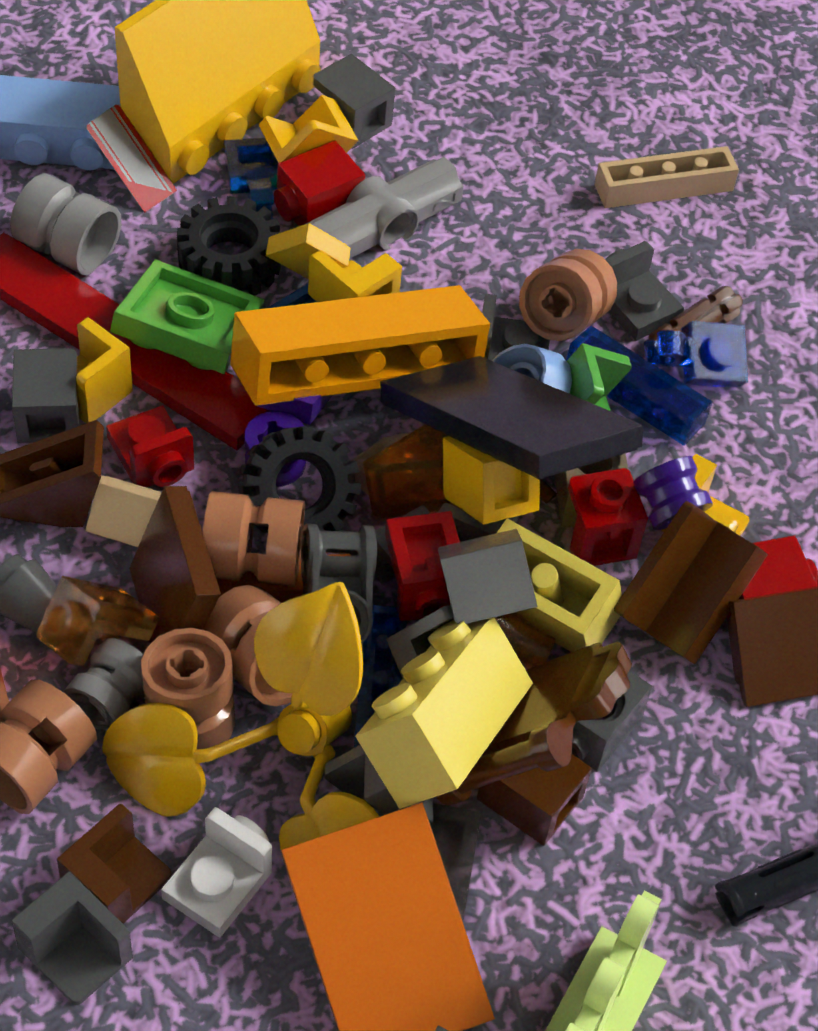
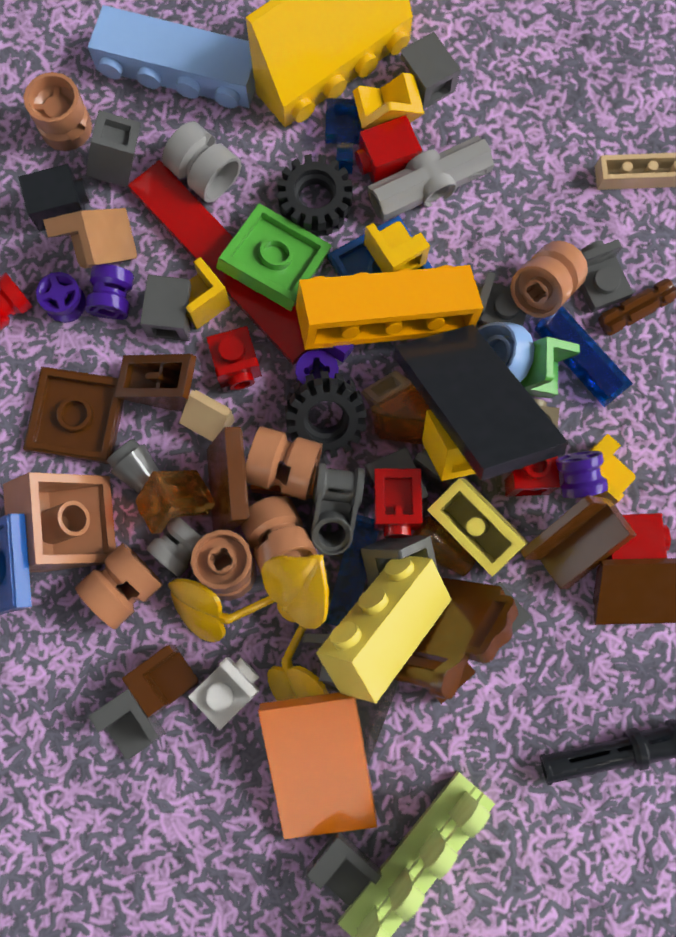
camera: 15 degrees right, 25 degrees up
(130, 158) = (256, 107): sticker -> none
(296, 245) = (366, 213): yellow tile -> none
(487, 577) = (432, 533): dark grey panel -> none
(707, 352) = (639, 339): clear blue plate -> none

